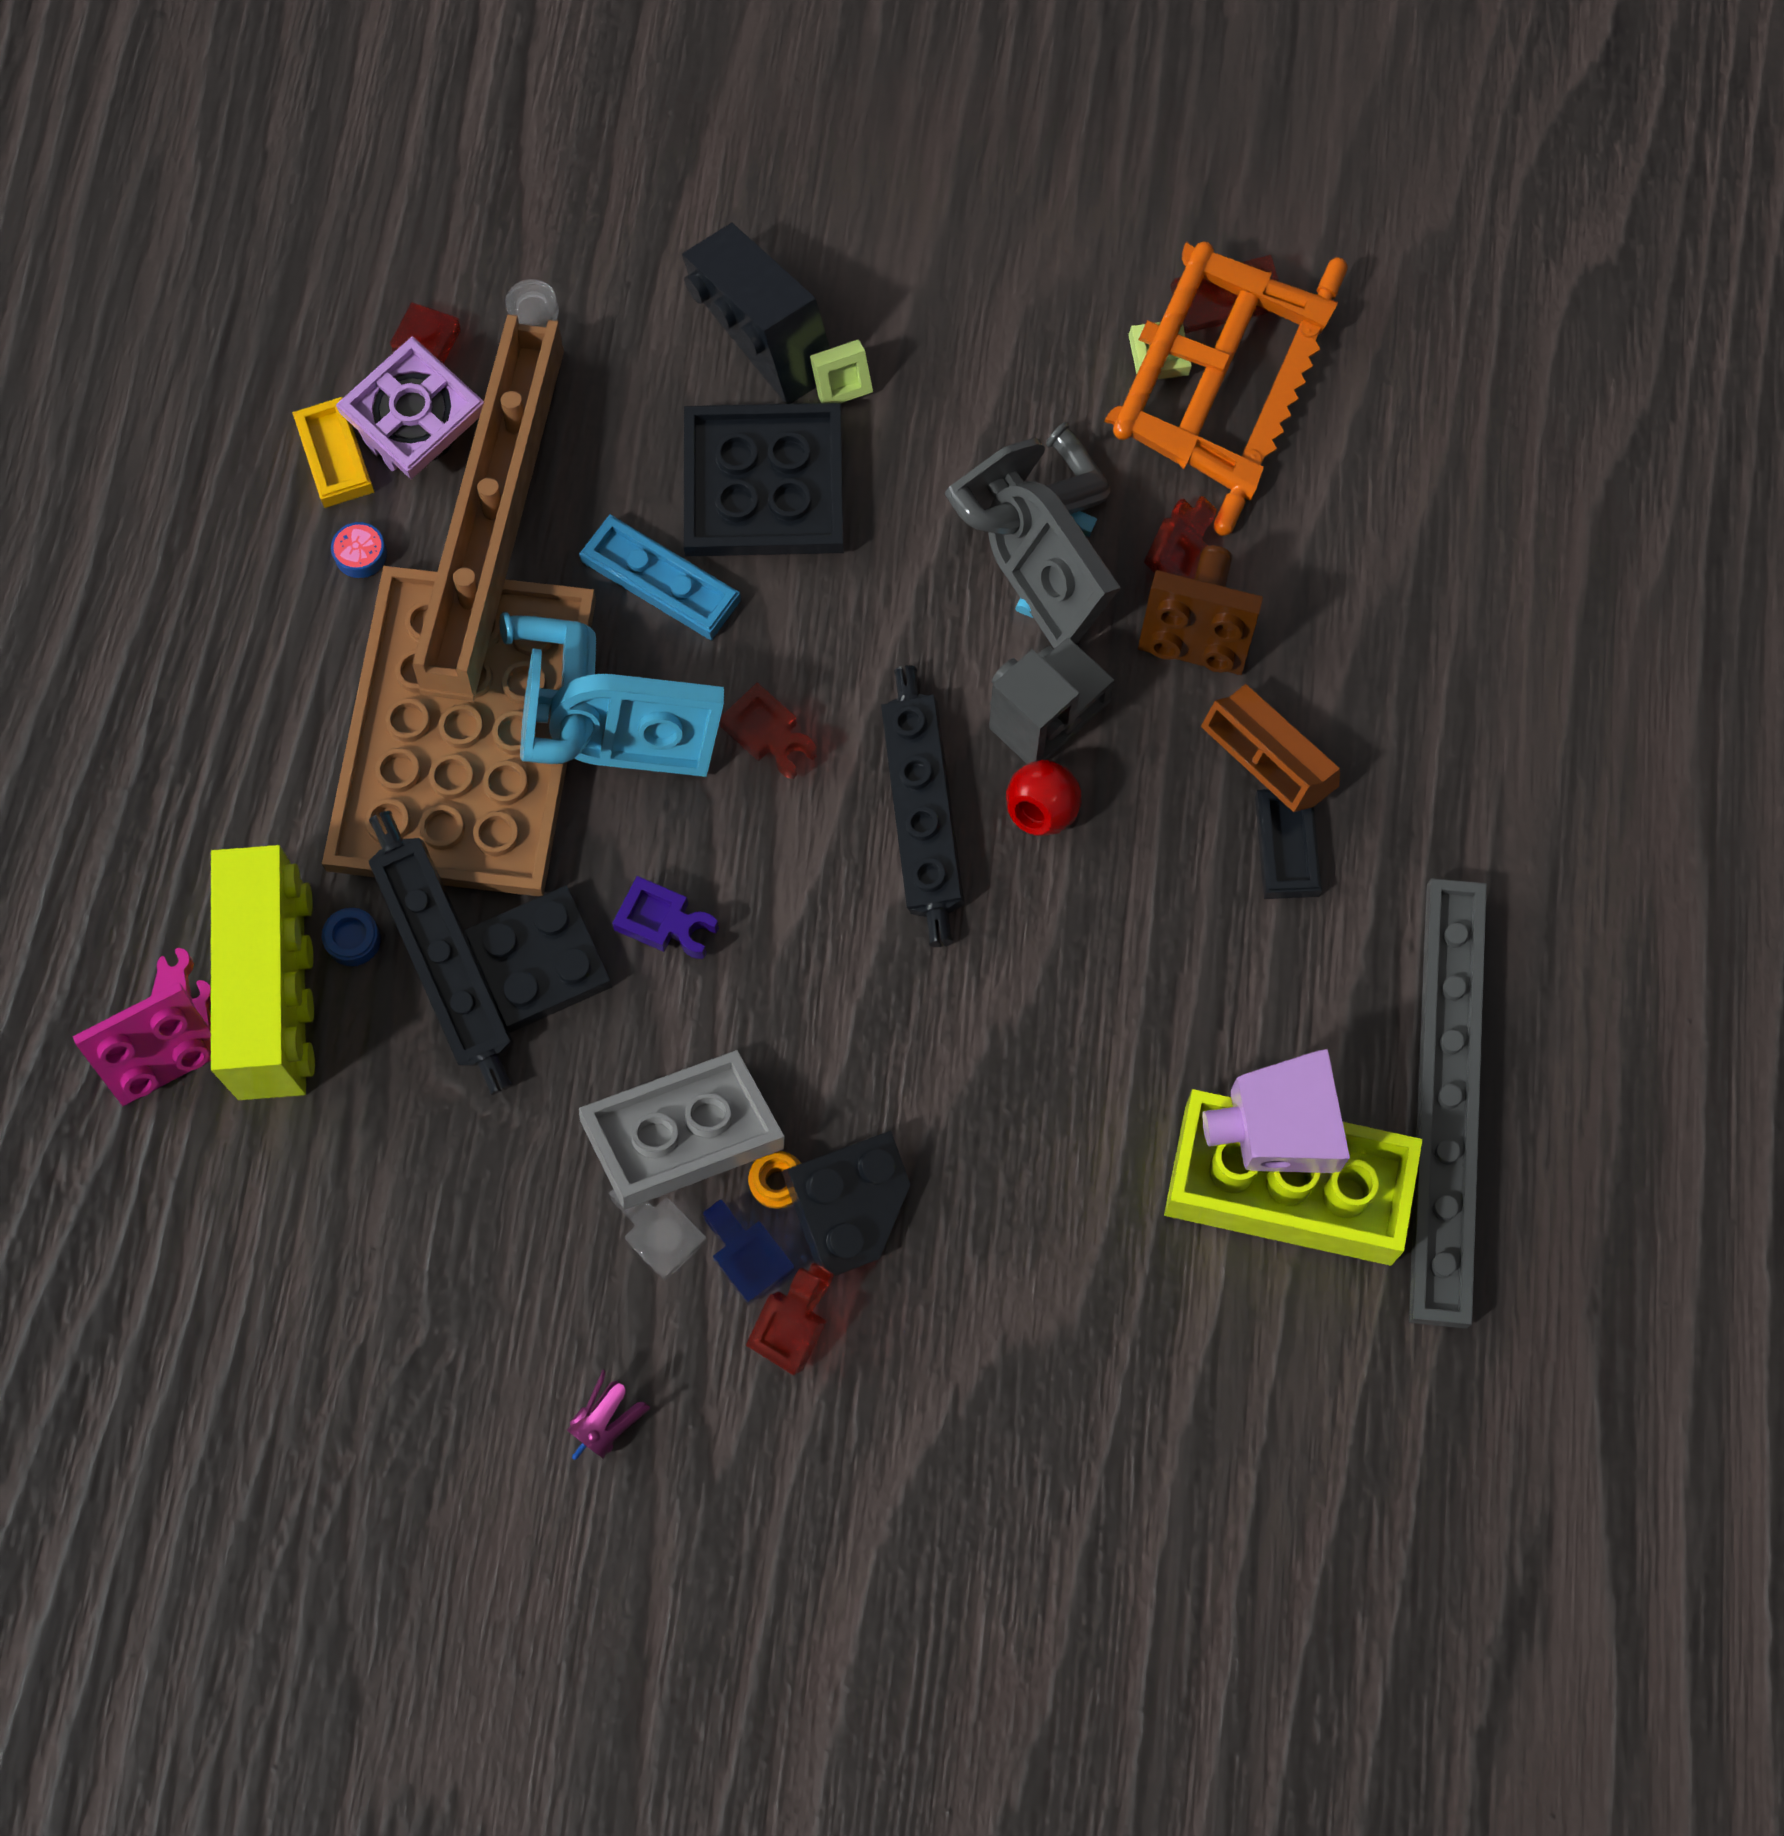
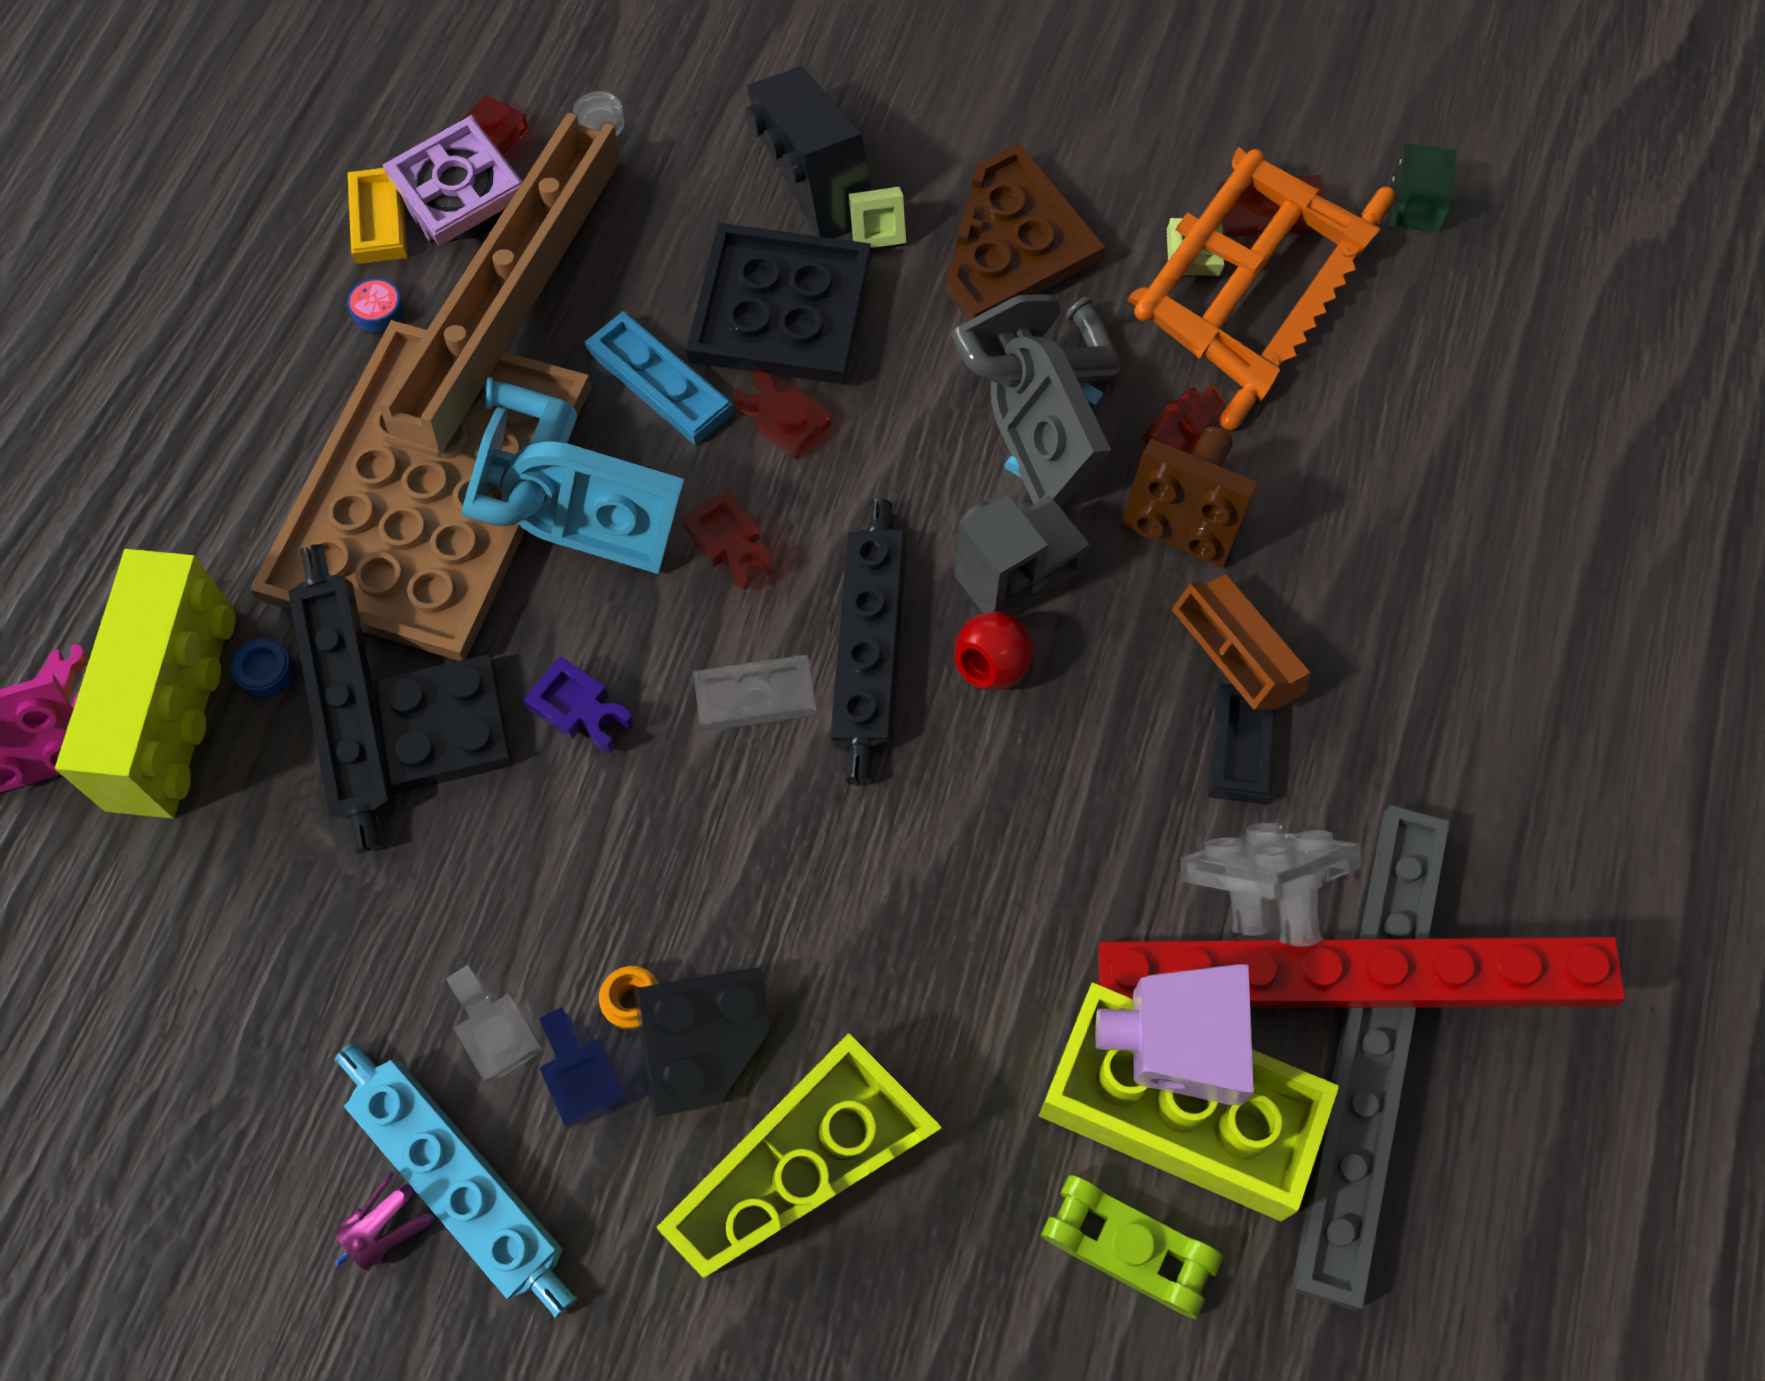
camera: 10 degrees right, 5 degrees down
(657, 1366) = (455, 1180): none -> medium azure plate
(681, 1129) = (537, 924): light grey plate -> none
(787, 1325) = (602, 1158): clear red plate -> none
(794, 598) = (784, 418): none -> clear red plate
(826, 877) = (754, 693): none -> clear plate
(970, 1280) = (808, 1149): none -> neon yellow wedge
(981, 369) = (1015, 236): none -> reddish brown plate
(1265, 1311) = (1132, 1247): none -> lime plate
(1333, 956) = (1274, 867): none -> clear plate
(1372, 249) = (1422, 187): none -> clear green brick
(1446, 1031) = (1390, 971): none -> red plate

